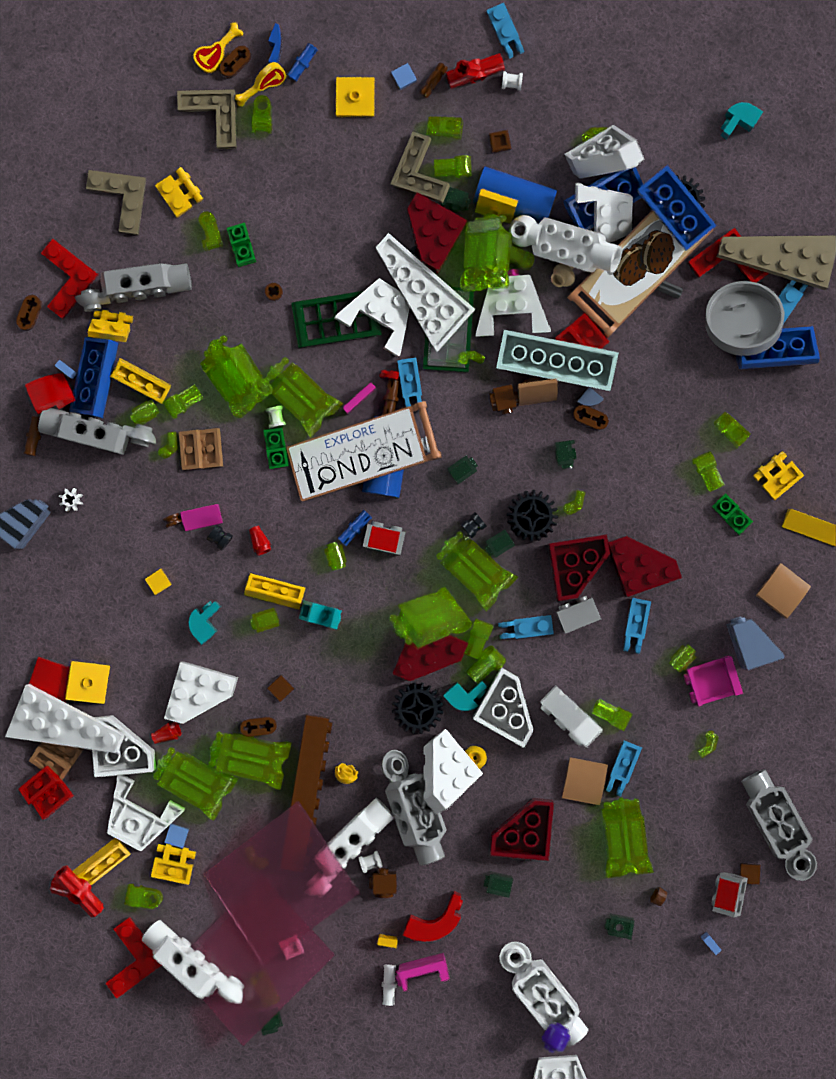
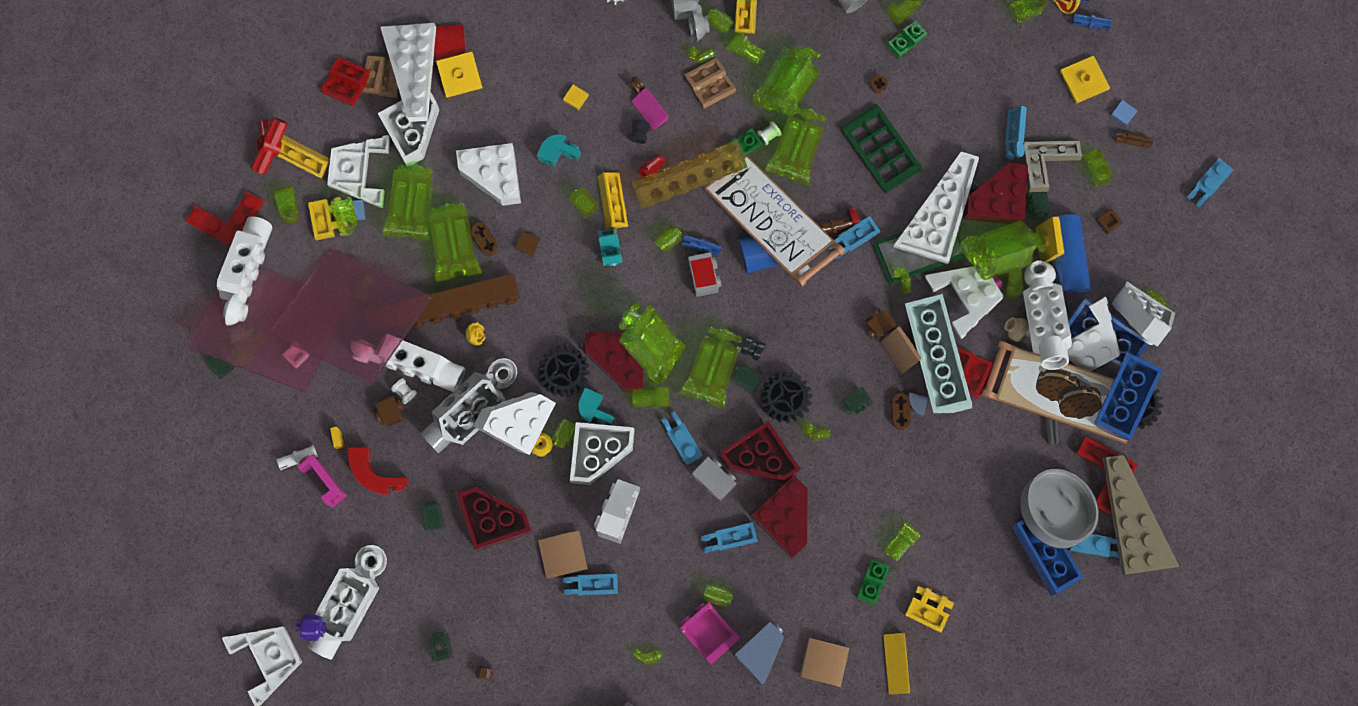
camera: 65 degrees right, 10 degrees down
(168, 732) = (444, 162): red cone -> none
(175, 848) = (344, 212): none -> clear neon green piece
(284, 510) = (679, 172): none -> clear yellow brick
(359, 398) = (820, 198): dark pink tile -> none
(378, 187) = (1015, 132): none -> dark azure hinge
(384, 306) = (912, 185): white wing -> none
(455, 166) = (1066, 191): clear neon green piece -> none
(463, 469) = (799, 316): clear green brick -> none
(474, 70) = (1160, 169): red piece -> none
(476, 732) = (564, 434): none -> clear neon green brick
(490, 660) = (635, 417): clear neon green piece -> none
(512, 81) = (1168, 207): white bush -> none
(614, 715) = (636, 552): clear neon green piece -> none
(625, 838) = (525, 615): clear neon green piece -> none
(732, 429) = (951, 546): clear neon green leg -> none
(742, 114) = (1243, 425): teal brick -> none

